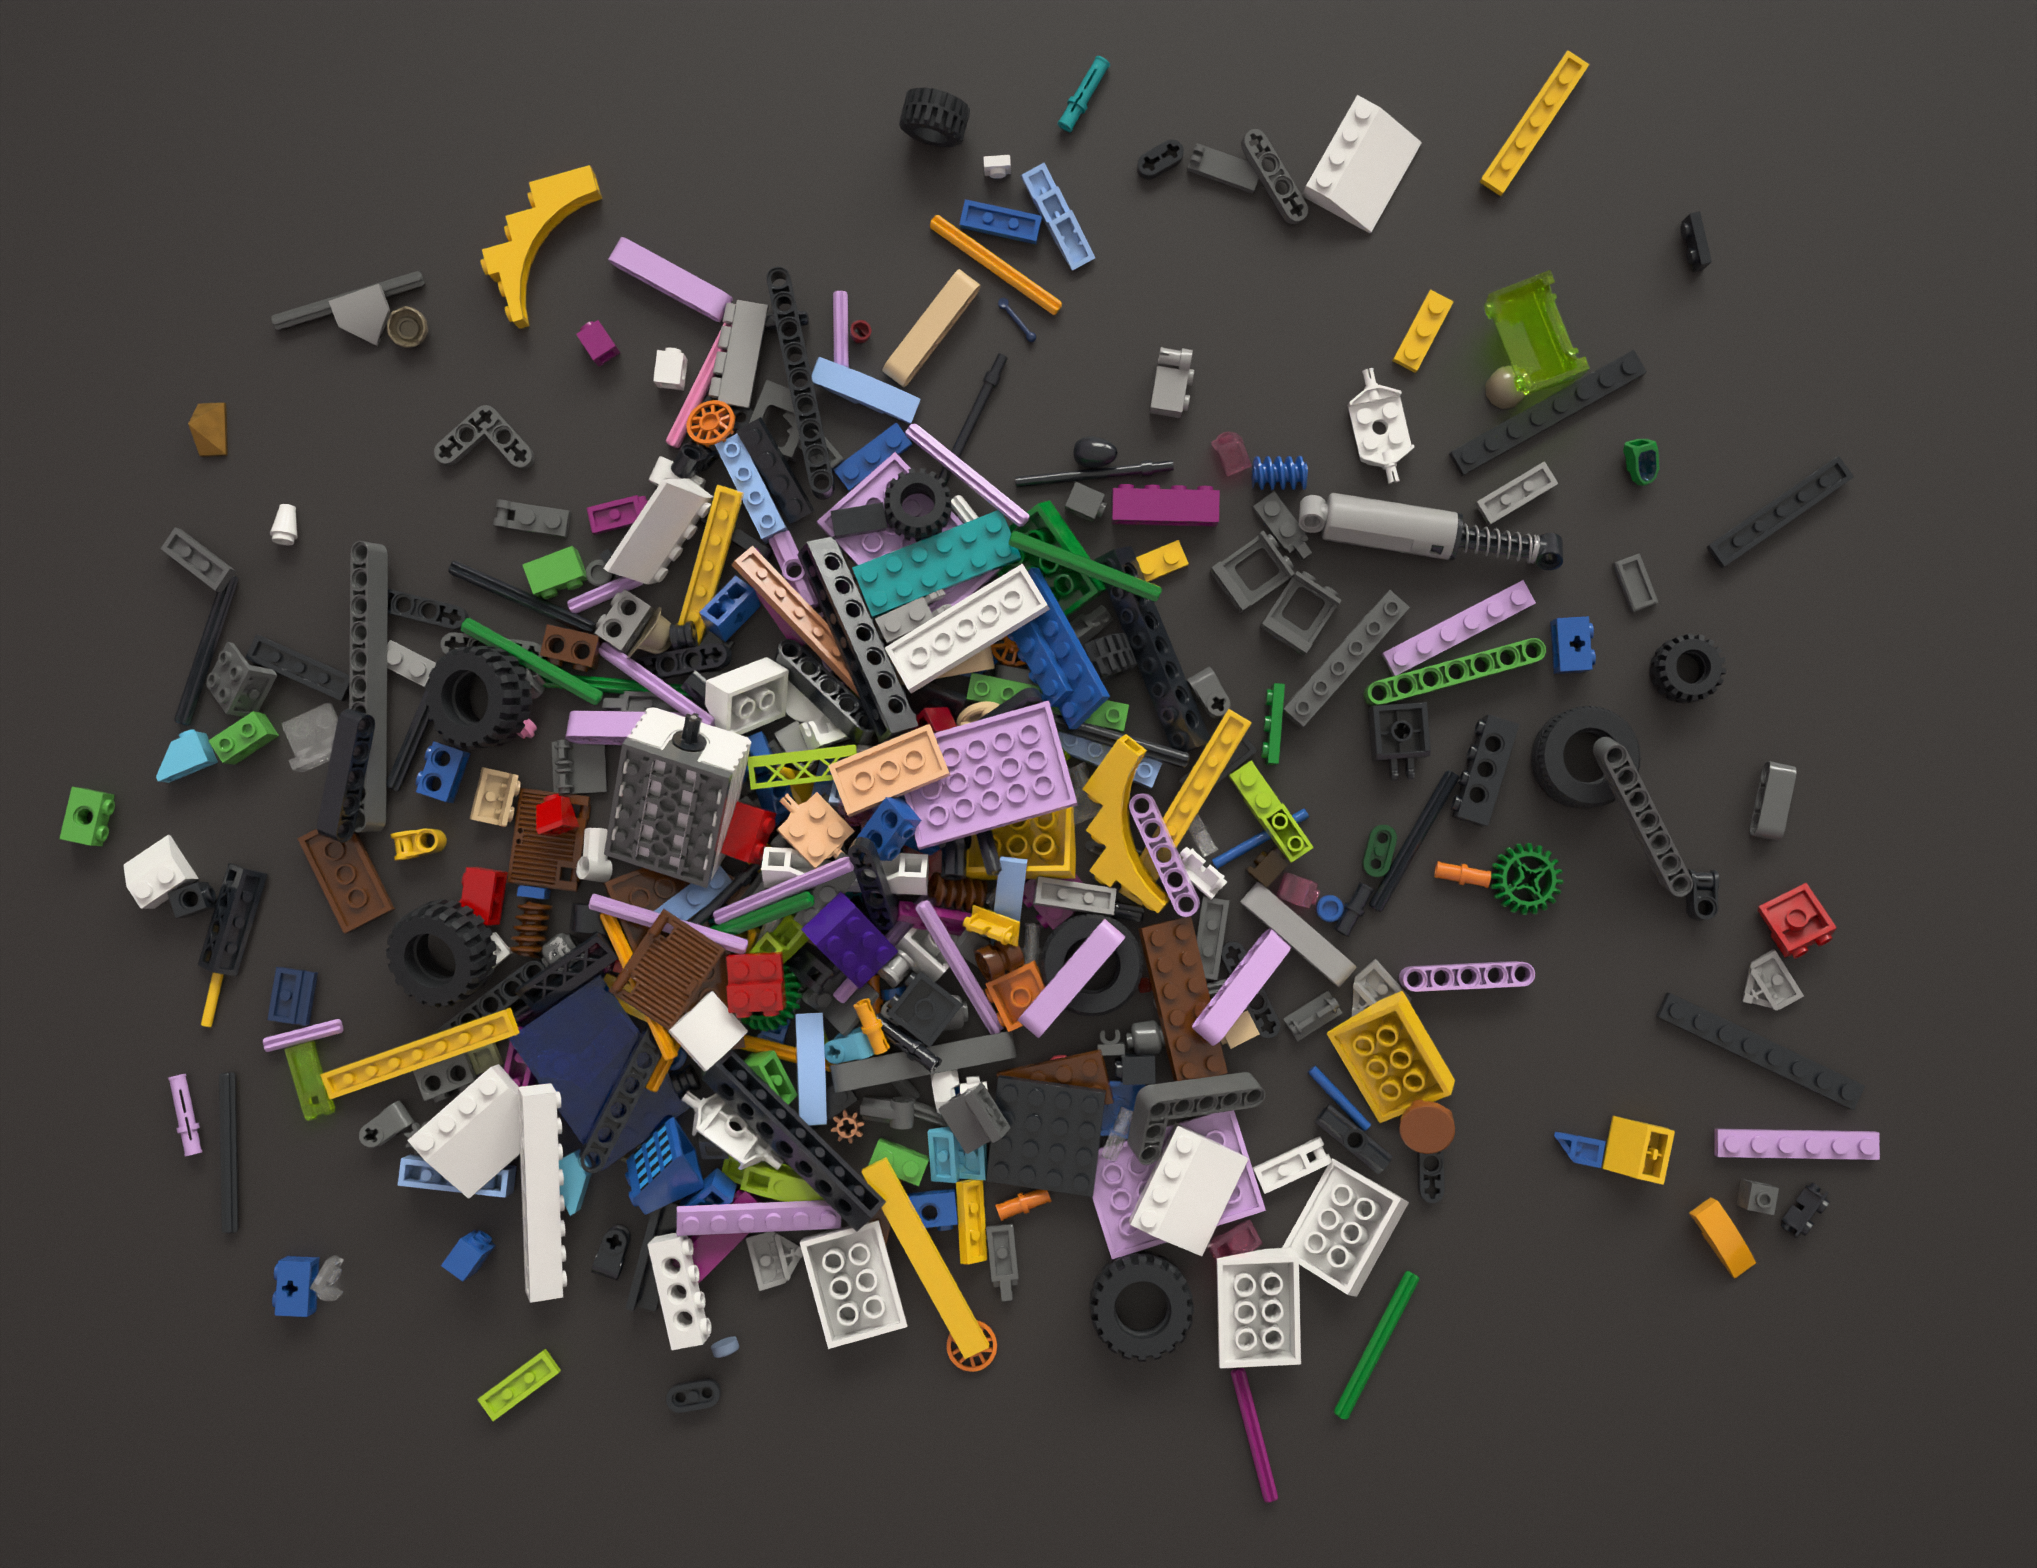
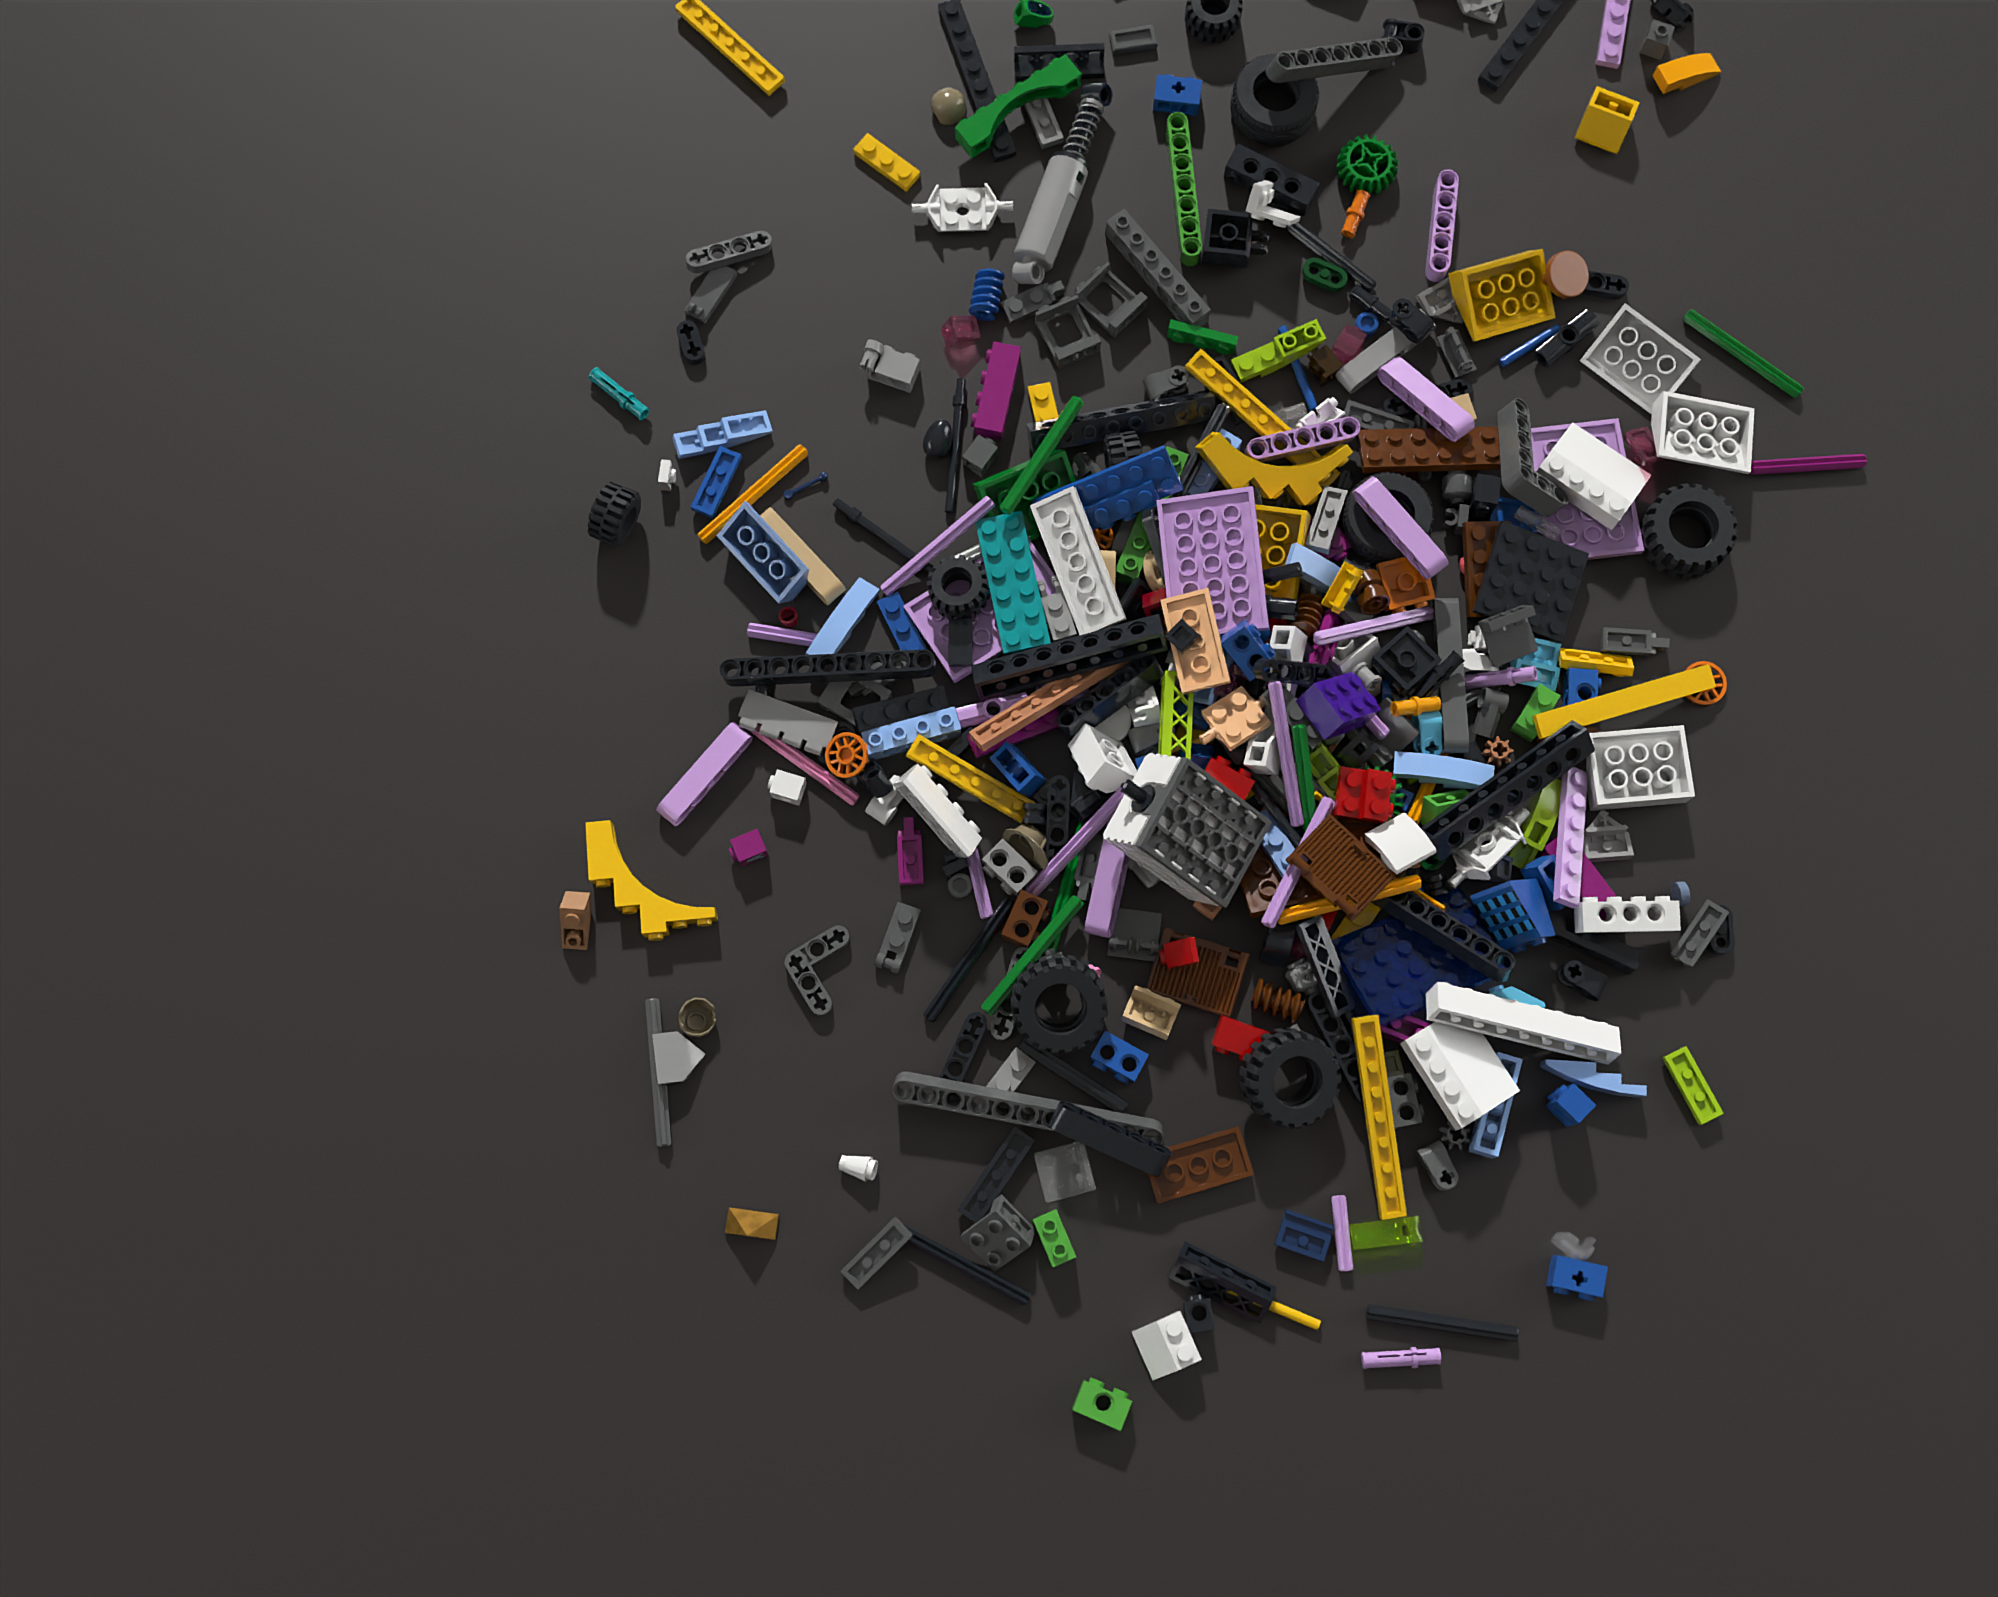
camera: 85 degrees left, 10 degrees down
(186, 756) = (1061, 1297): medium azure slope -> none
(414, 843) = (1180, 1095): yellow piece -> none
(489, 179) = (575, 920): none -> medium nougat slope
(508, 1268) = (1585, 1075): none -> light blue slope
(533, 892) = (1243, 993): blue tile -> none
(555, 573) = (953, 922): bright green brick -> none
(593, 863) = (1220, 931): white piece -> none
(682, 1373) = (1699, 934): none -> dark grey hinge
(889, 754) = (1182, 636): none -> black tile
(917, 286) = (764, 554): none -> medium blue slope
(929, 1126) = (1503, 677): none -> lavender pin
(1022, 1203) = (1585, 617): orange pin -> none
(1291, 1165) = (1582, 392): white plate -> none
(1328, 960) = (1411, 322): none -> black piece
(1362, 165) = (733, 183): white slope -> none
(1437, 766) = (1257, 205): none -> white bracket
(1458, 628) = (1146, 181): lavender plate -> none
(1534, 335) = (914, 71): clear neon green windscreen -> none
(1556, 499) = (1051, 82): none -> green arch
(1582, 1149) = (1599, 165): blue slope -> none
(1585, 502) = (1089, 64): none -> black fence

